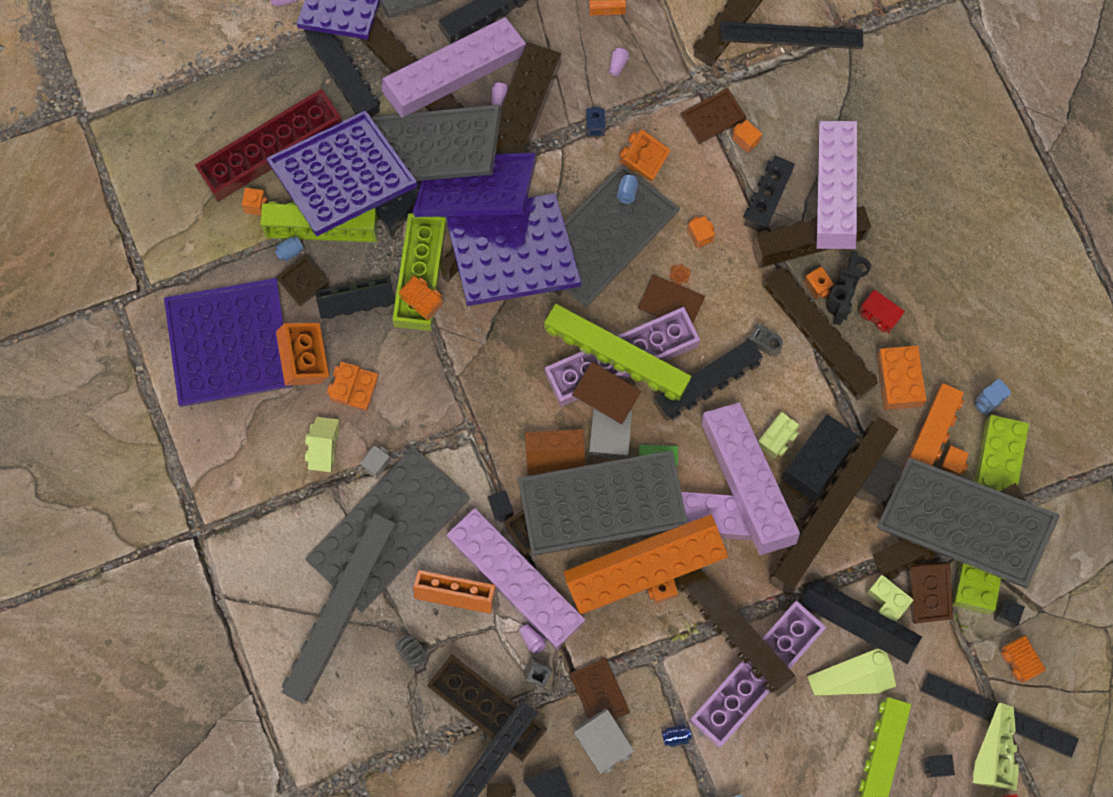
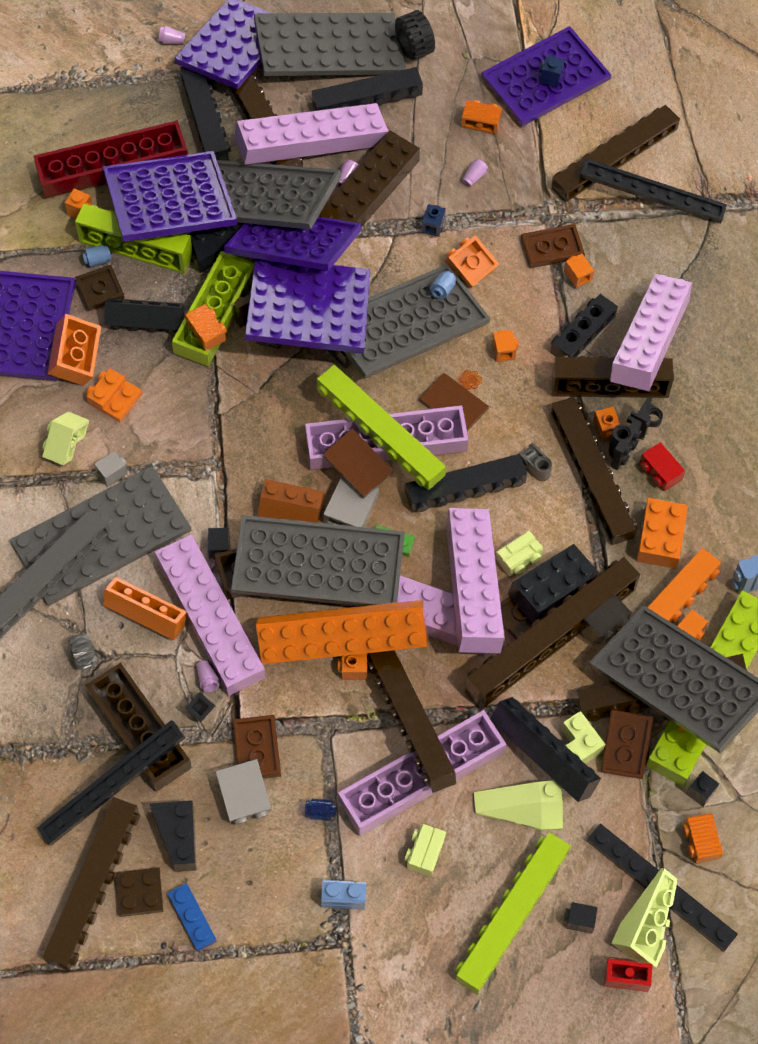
camera: 15 degrees right, 10 degrees down
(782, 745) = (425, 849): none -> yellowish green brick

